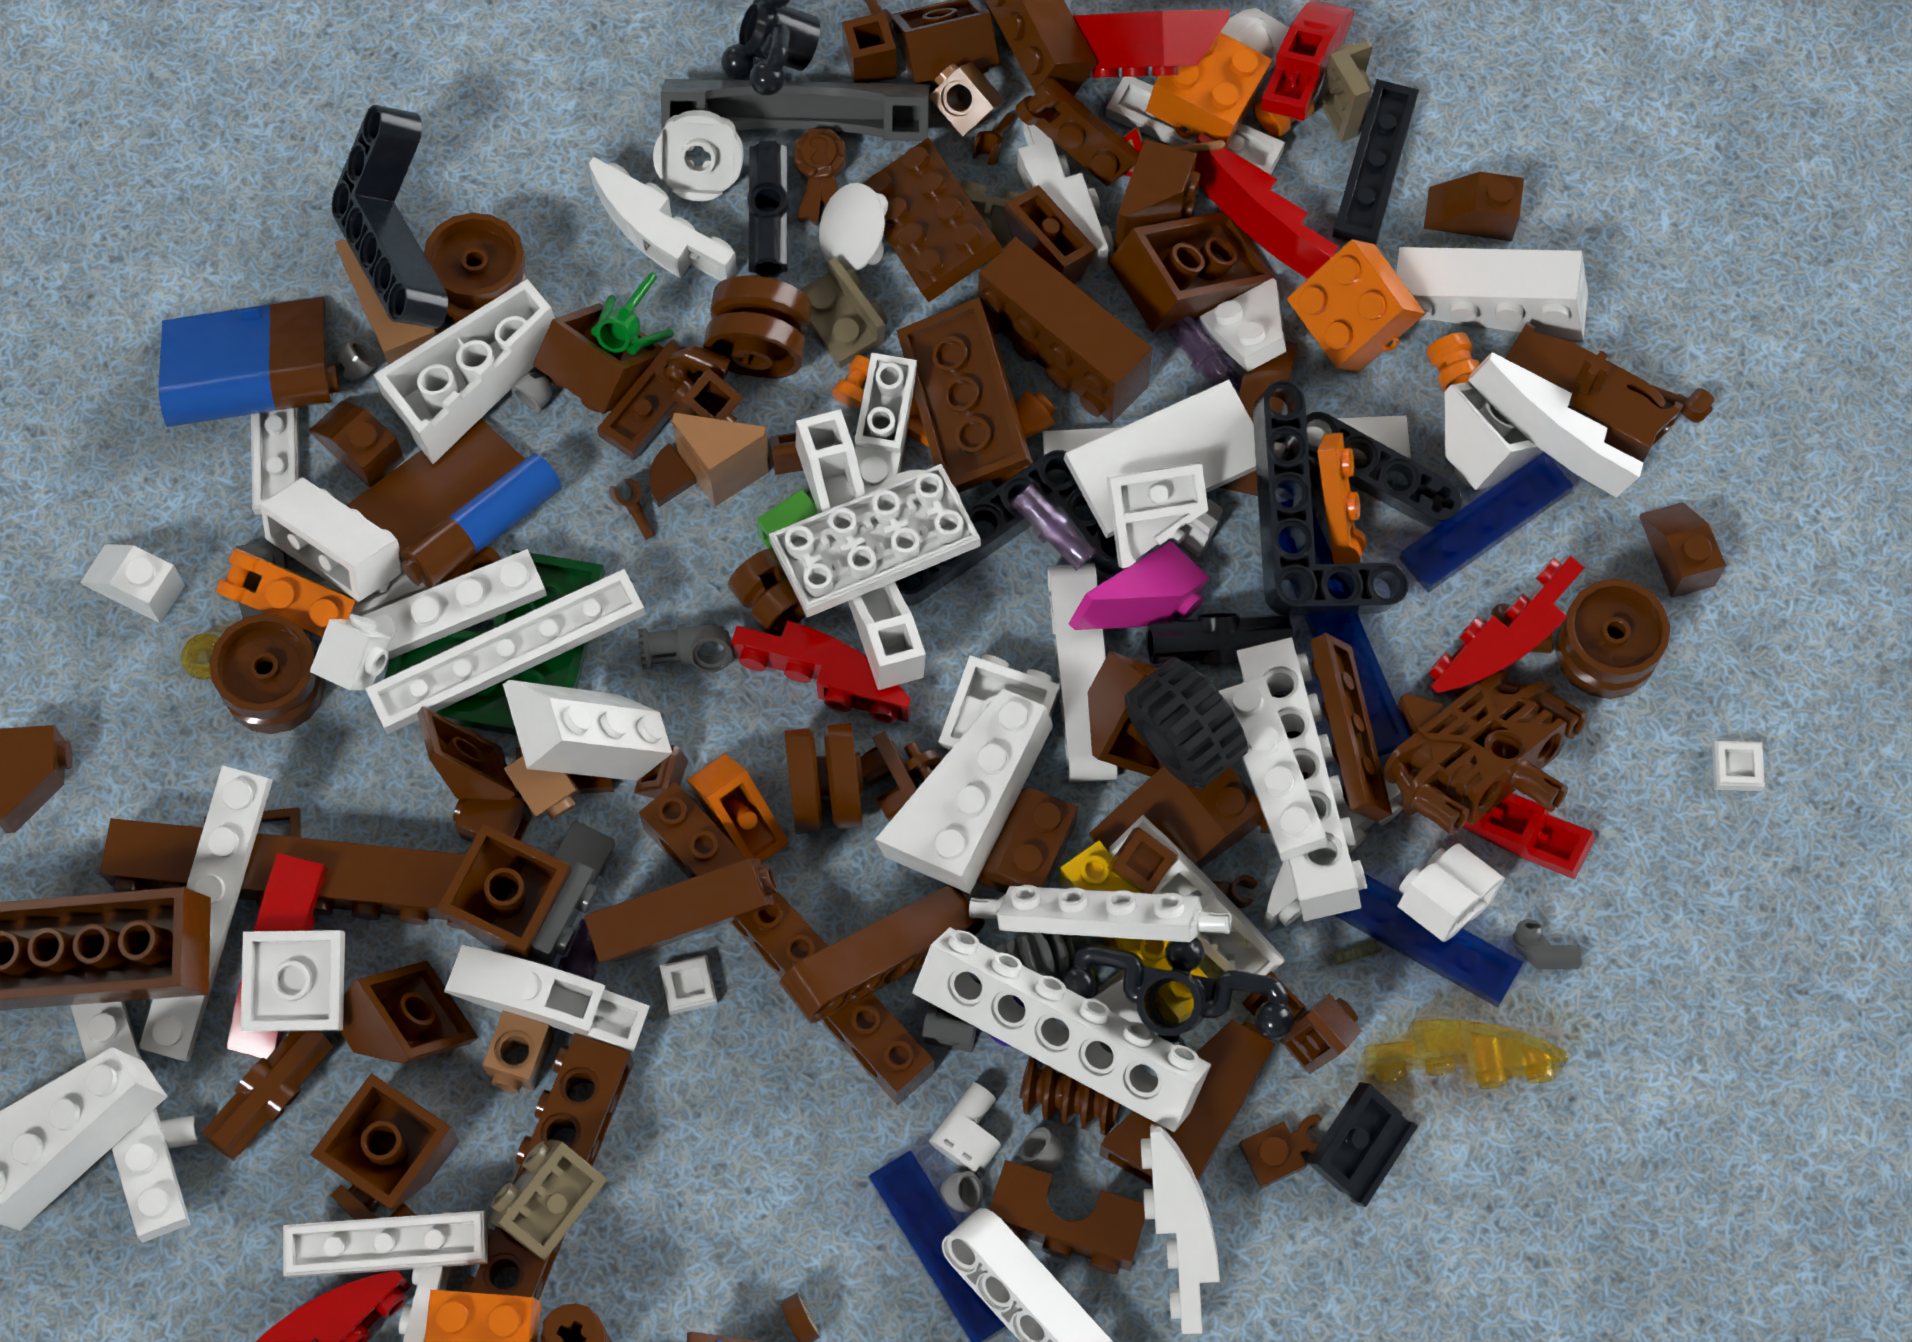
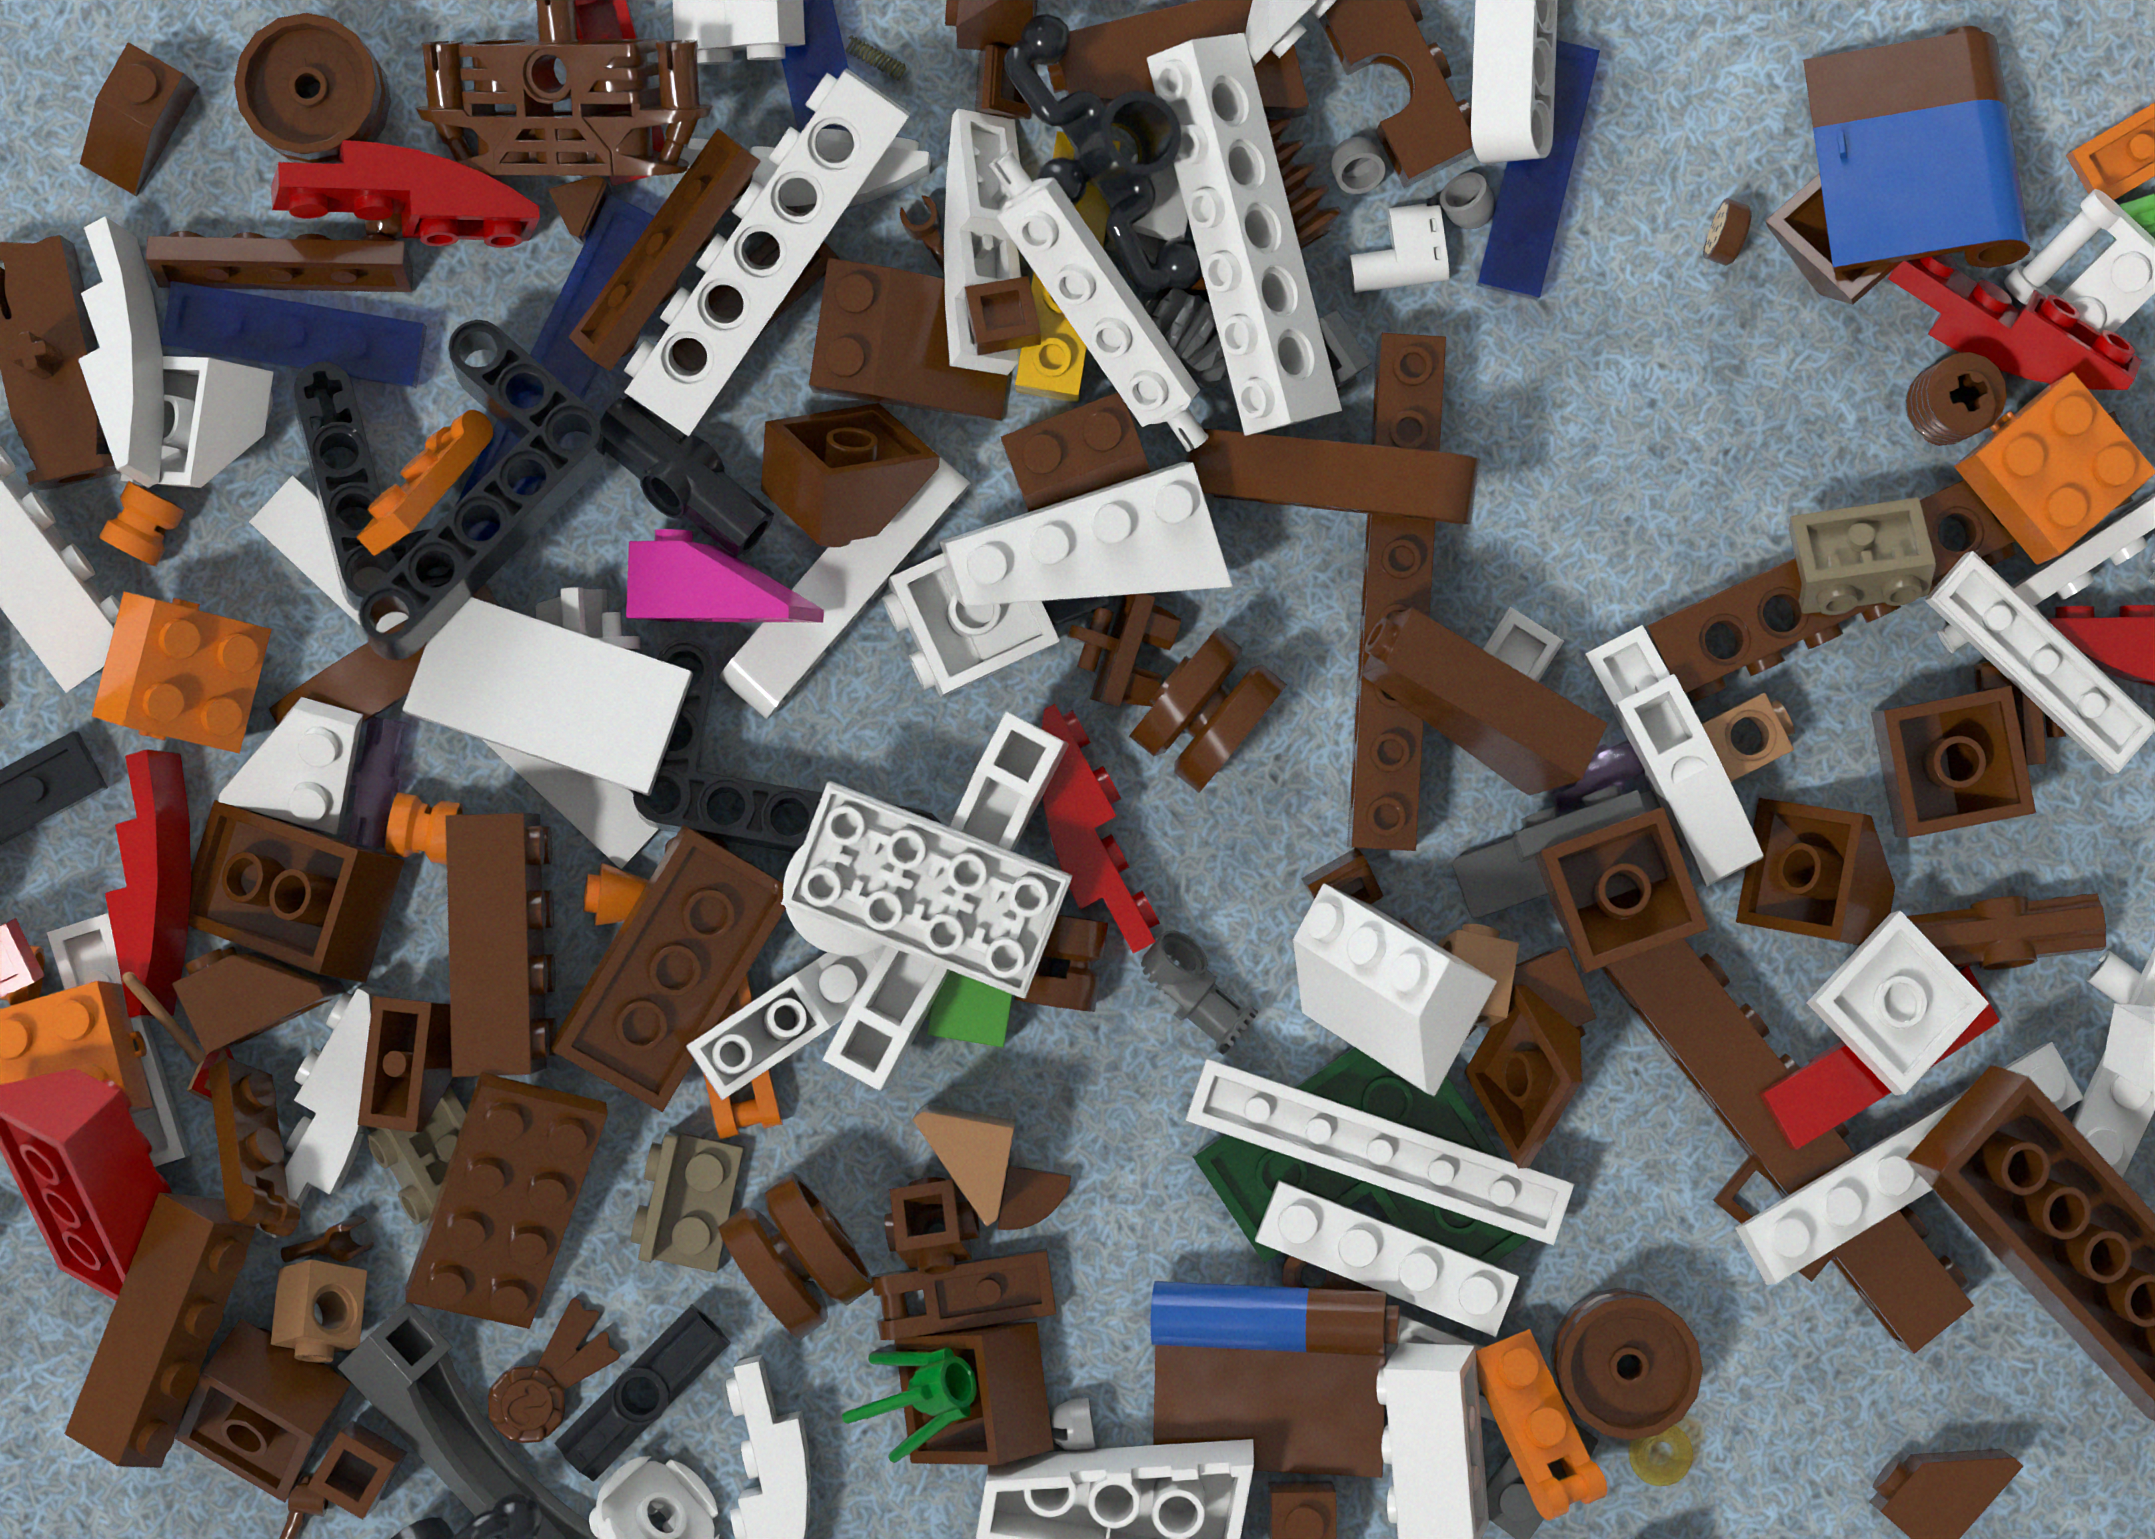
camera: 135 degrees left, 20 degrees up
(351, 653) = (1537, 1290): white brick -> none
(633, 507) = (1096, 1201): reddish brown hand -> none
(692, 360) = (891, 1282): reddish brown arm -> none
(738, 808) = (1311, 772): orange slope -> none
(785, 454) = (882, 1109): reddish brown slope -> none
(853, 226) = (585, 1276): white dish -> none
(1053, 527) = (731, 737): clear purple pin -> none
(1153, 506) = (622, 646): white wing -> none
(1167, 354) = (418, 827): none -> orange wheel
(1186, 723) = (836, 384): black tyre -> none
(1275, 771) = (791, 273): white plate -> none
(1520, 559) = (266, 263): none -> reddish brown plate

